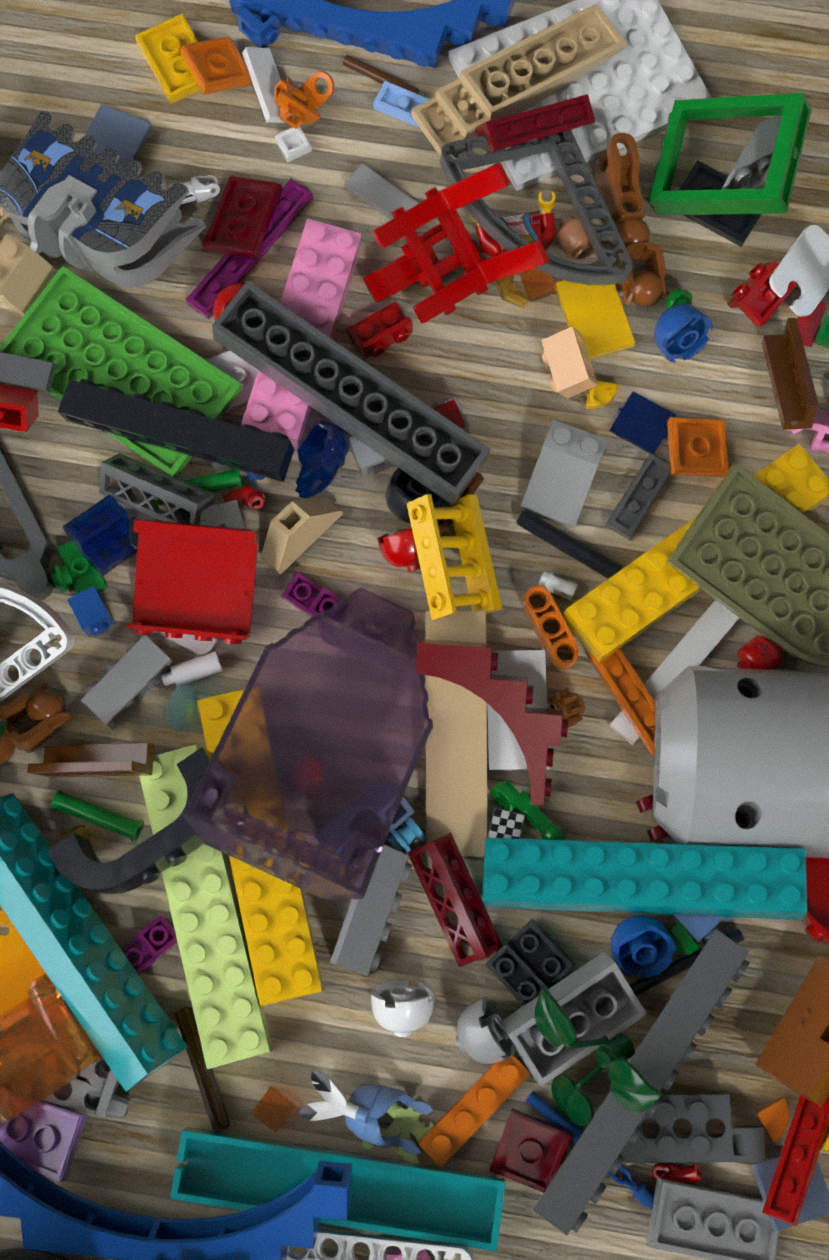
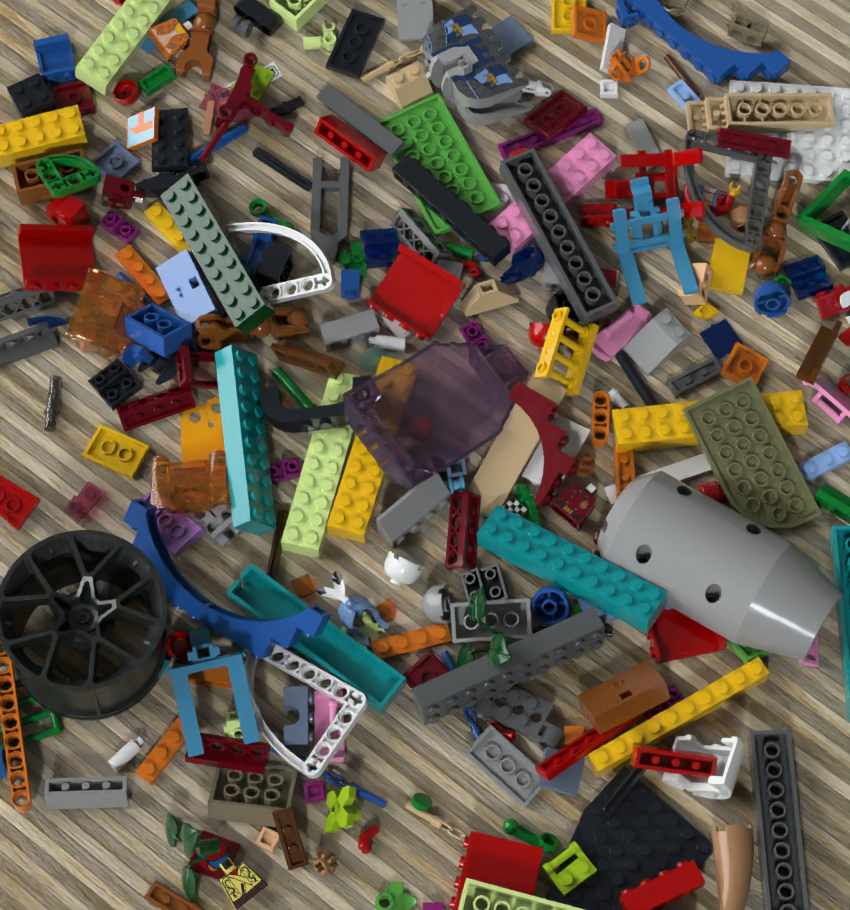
camera: 30 degrees right, 10 degrees down
(412, 1079) = (387, 611): none -> clear orange tile
(439, 325) = (647, 214): none -> dark azure piece
(506, 481) = (621, 332): none -> bright pink piece
(588, 772) = (575, 504): none -> dark red torso
(707, 276) = (808, 277): none -> clear blue slope

